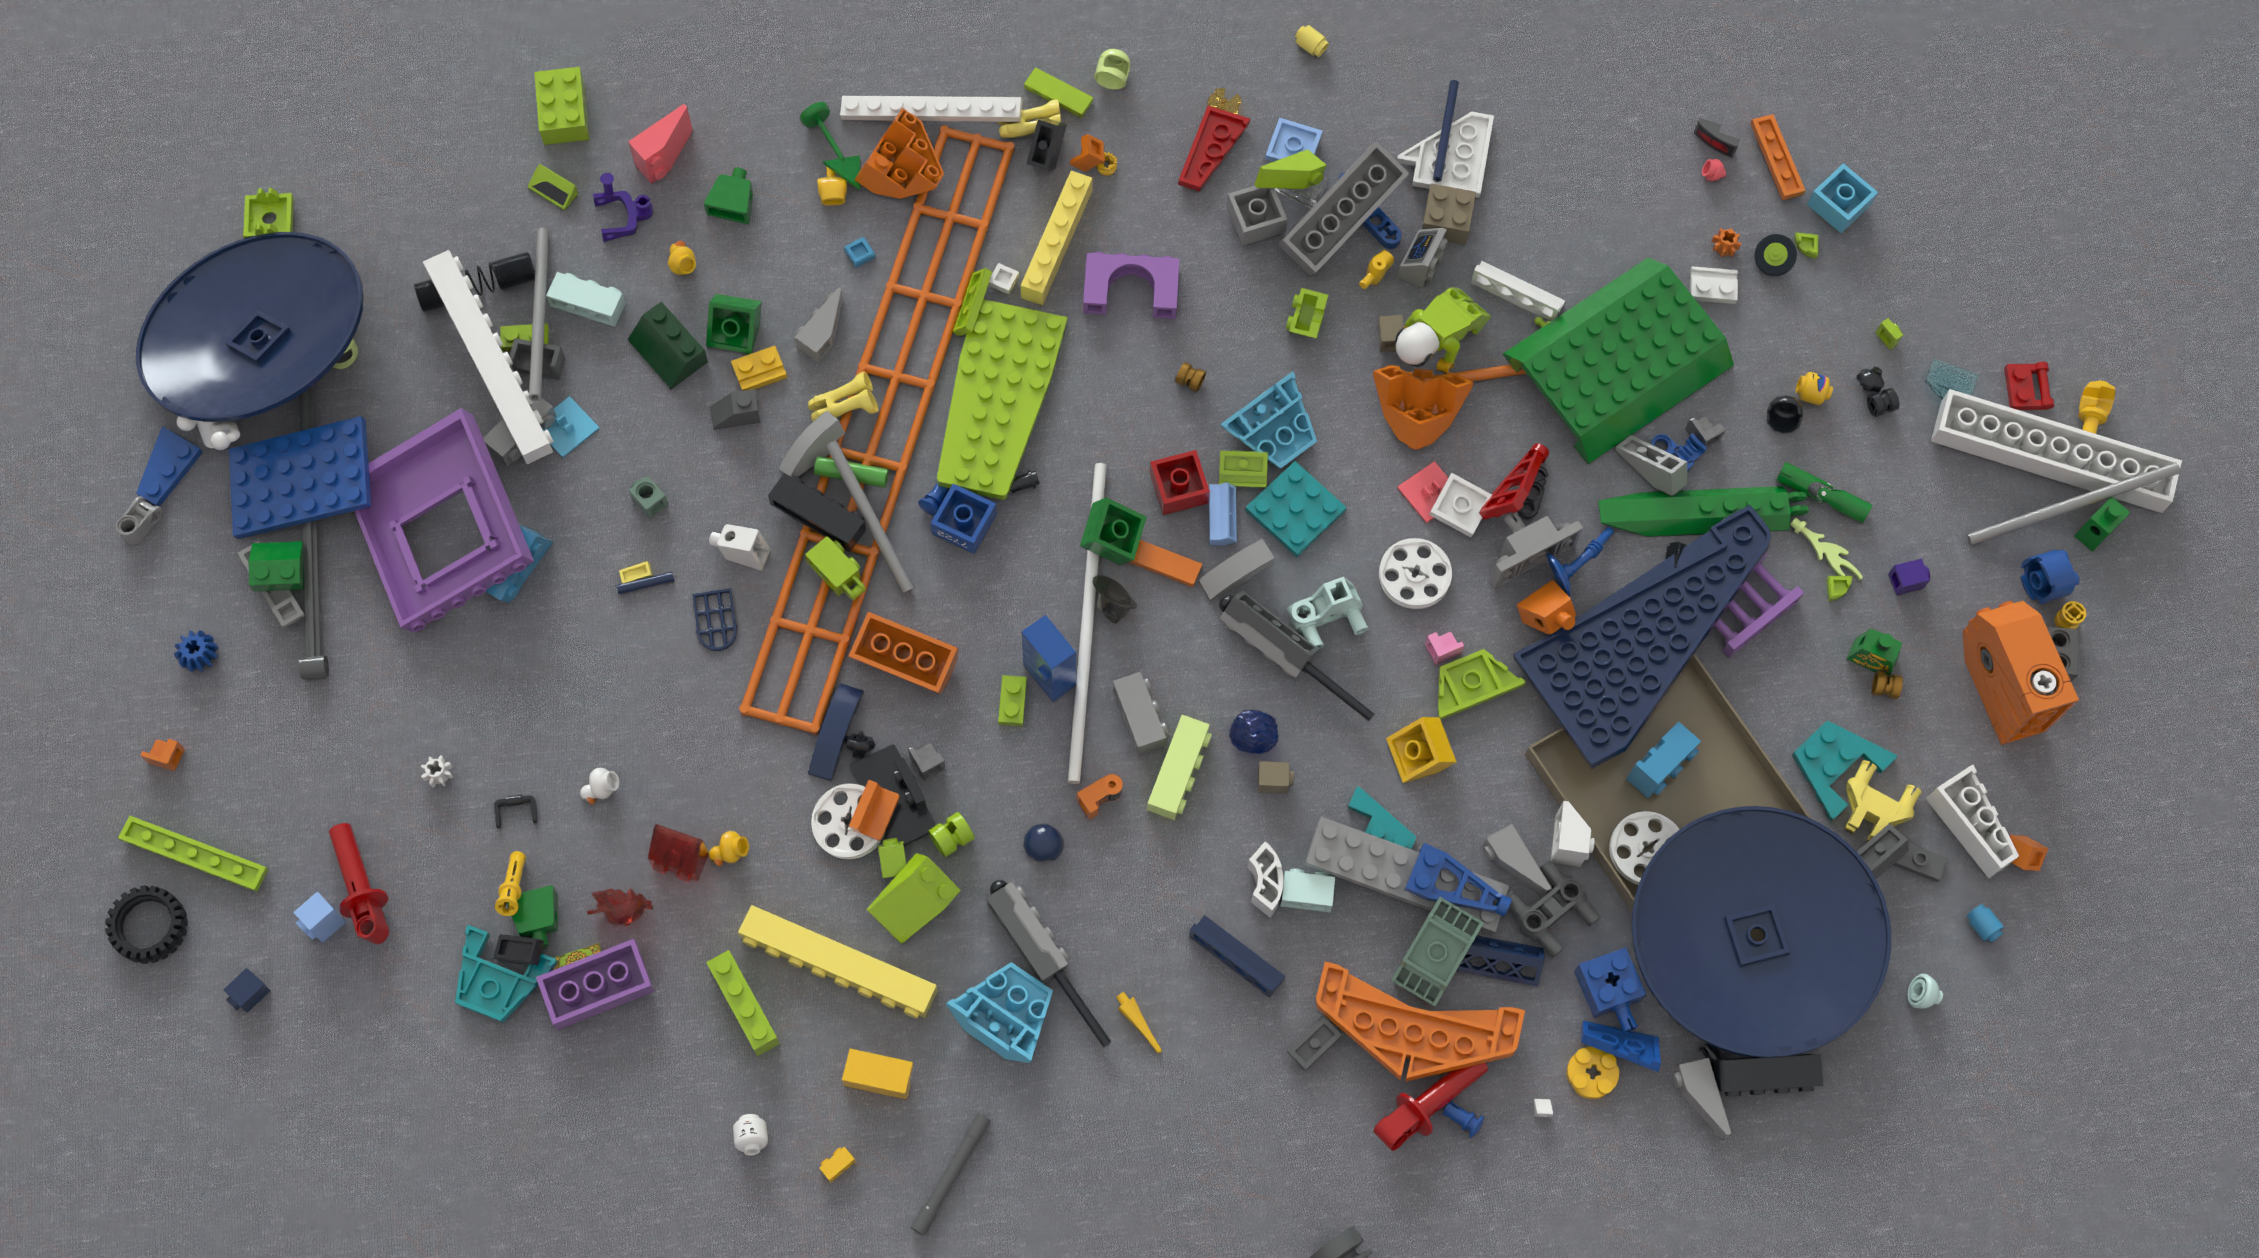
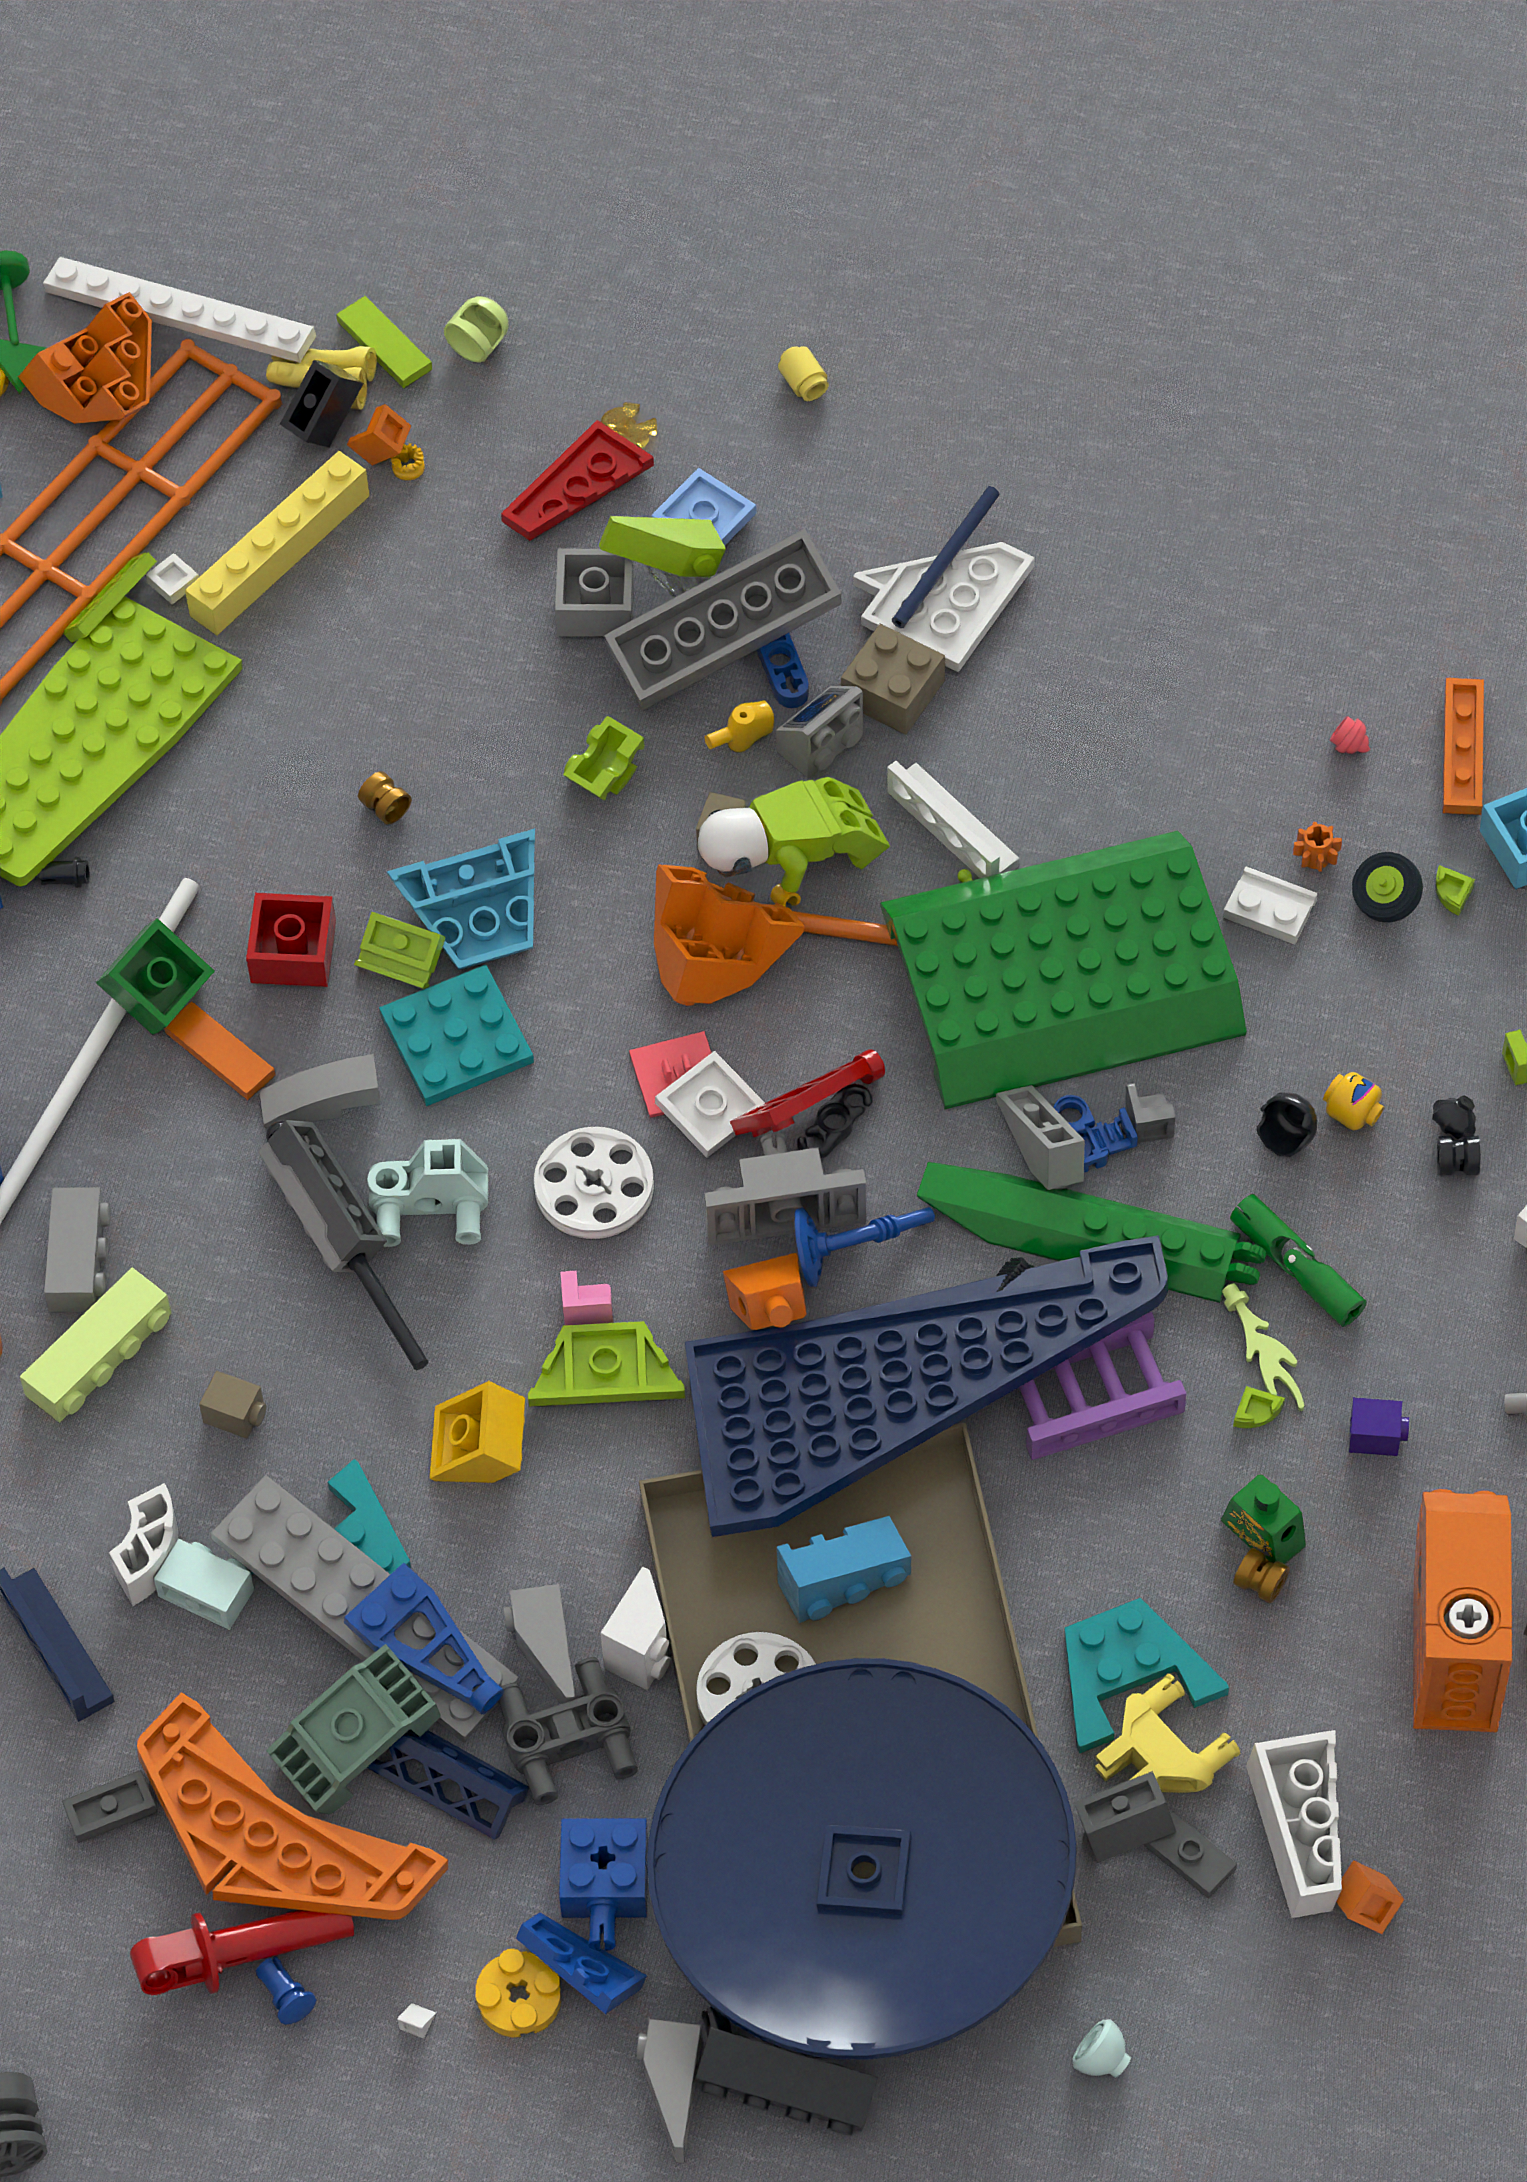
camera: 25 degrees right, 10 degrees down
(1105, 268) = (328, 608): medium lavender arch -> none
(1112, 598) = (113, 1073): clear smoke piece -> none
(1222, 514) = (338, 1007): light blue piece -> none
(1254, 732) = (233, 1330): clear blue hair -> none
(1709, 134) = (1369, 682): slope -> none
(1985, 923) = (1251, 1981): dark azure brick -> none

